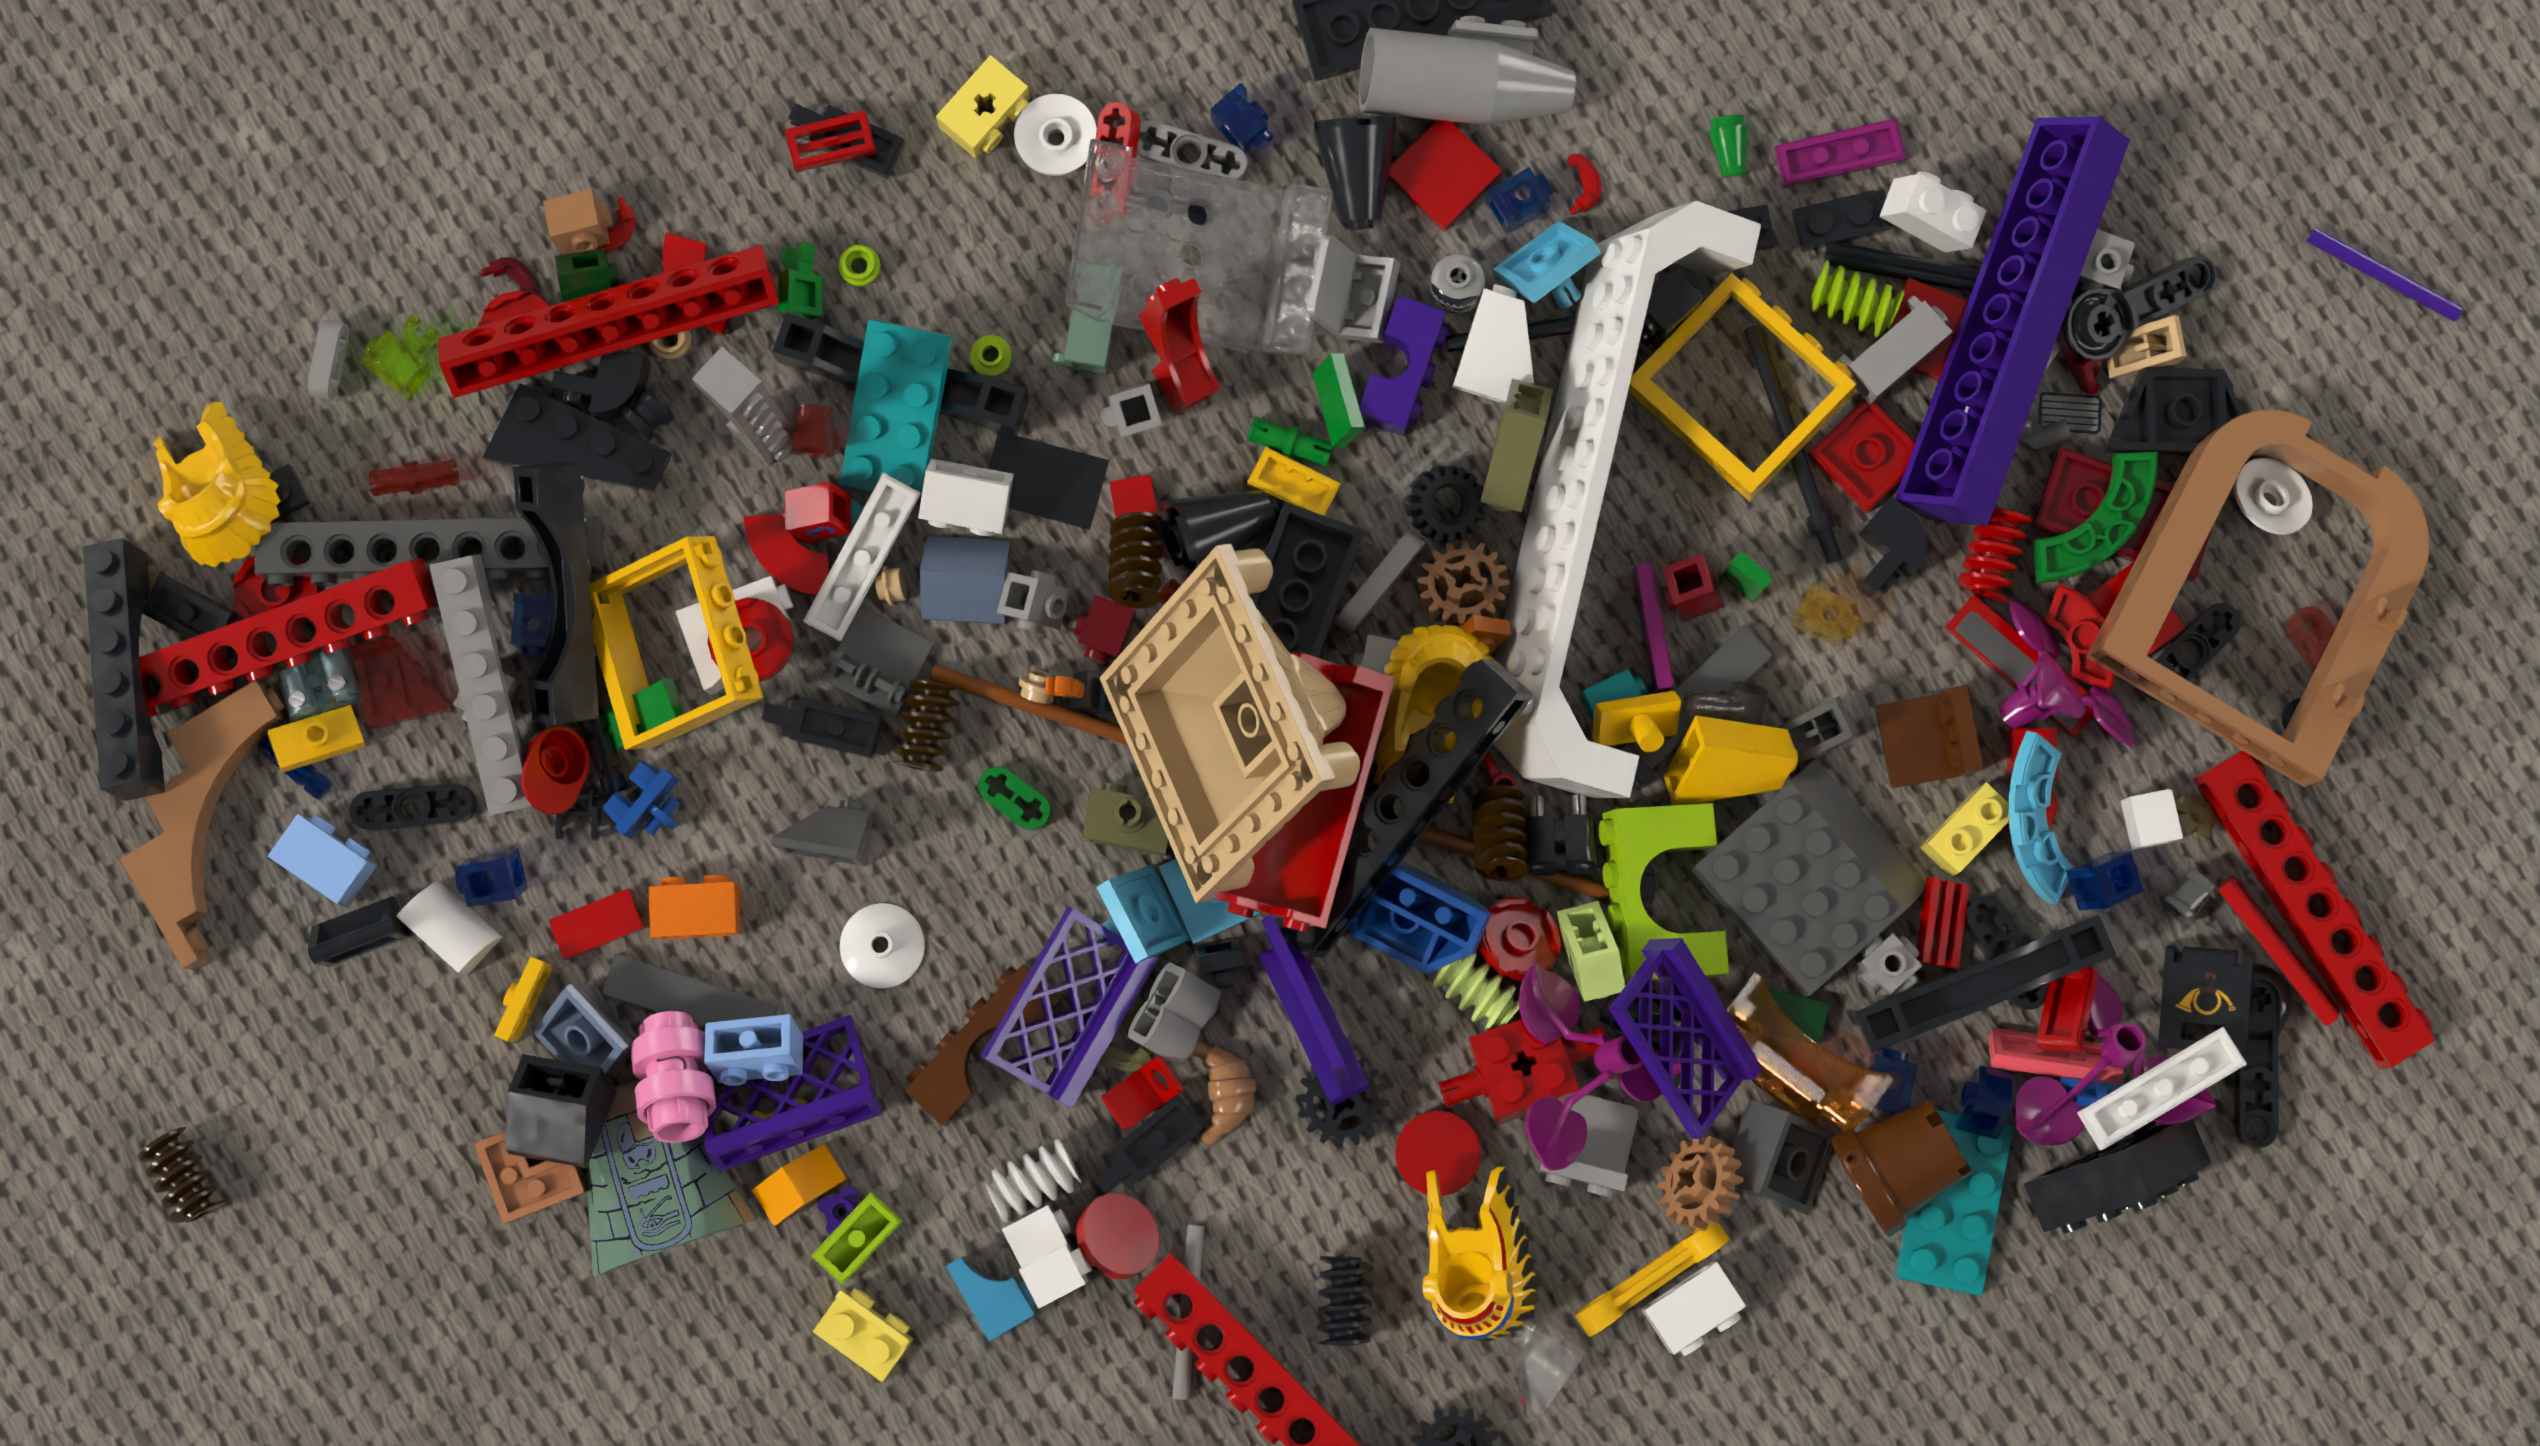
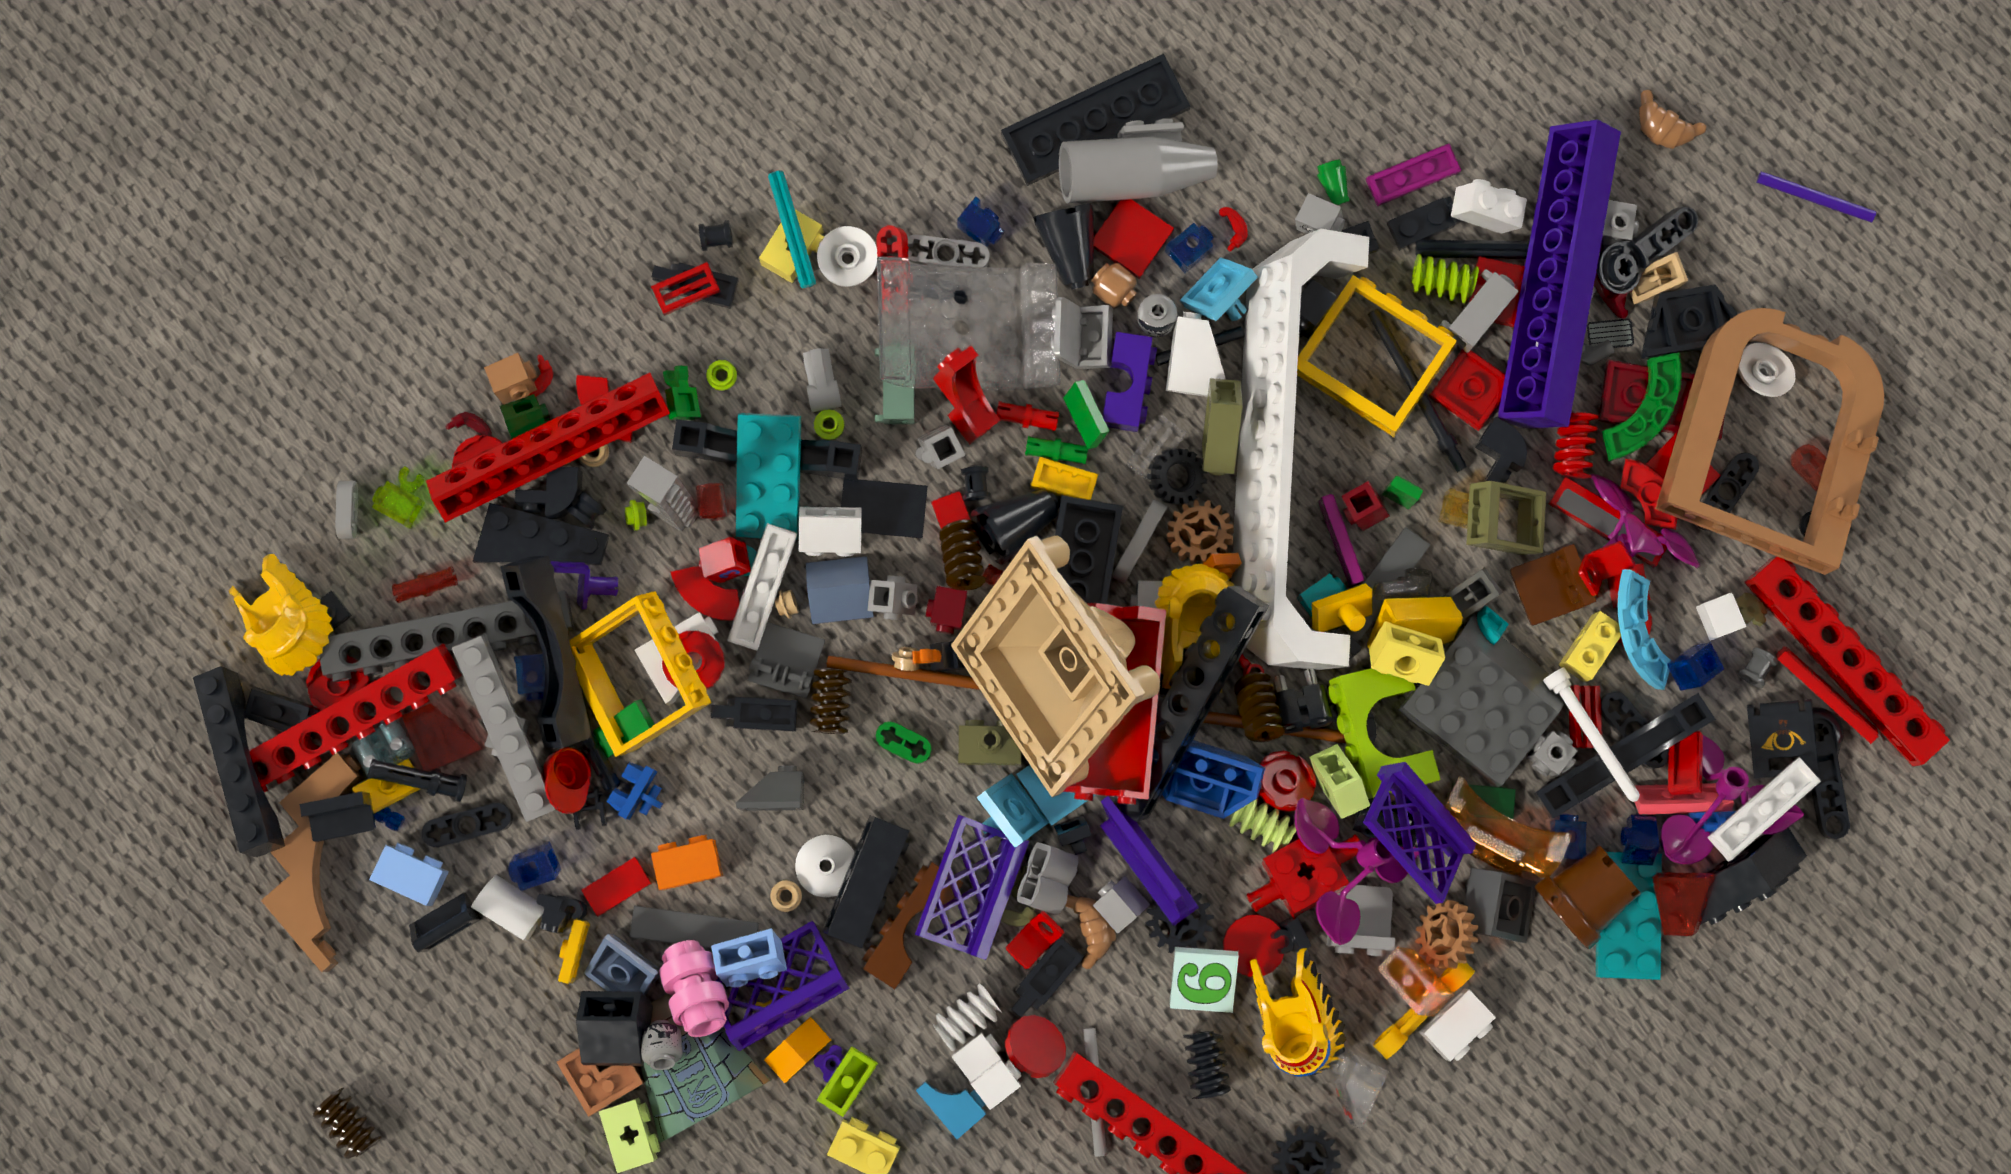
camera: 15 degrees left, 0 degrees up
(243, 764) = (339, 816): none -> black panel
(377, 741) = (433, 782): none -> black pin
(511, 943) = (557, 911): none -> black piece
(541, 1237) = (625, 1152): none -> yellowish green brick
(616, 1144) = (661, 1045): none -> light grey head
(630, 514) = (587, 584): none -> dark purple bracket
(711, 432) = (636, 515): none -> lime plate
(807, 971) = (776, 893): none -> tan plate
(884, 77) = (715, 235): none -> black bush
(930, 976) = (866, 881): none -> black brick
(986, 85) = (792, 229): none -> teal axle
(990, 307) = (822, 387): none -> light grey piece
(1173, 467) = (975, 483): none -> black bush
(1259, 389) = (1027, 415): none -> red pin
(1266, 1064) = (1120, 903): none -> light grey brick
(1361, 1186) = (1203, 979): none -> light aqua tile
(1407, 233) = (1114, 285): none -> medium nougat head
(1493, 1148) = (1294, 935): none -> black tile
(1645, 1238) = (1415, 981): none -> clear orange brick
(1702, 183) = (1319, 214): none -> light grey brick
(1711, 794) = (1406, 654): none -> light yellow brick
(1836, 776) = (1491, 624): none -> teal tile
(1851, 626) = (1484, 514): none -> olive window
(1915, 872) = (1560, 684): none -> white piece
(2003, 720) = (1604, 564): none -> red bracket
(2028, 1193) = (1681, 900): none -> clear red wing
(2194, 144) = (1665, 126): none -> medium nougat piece

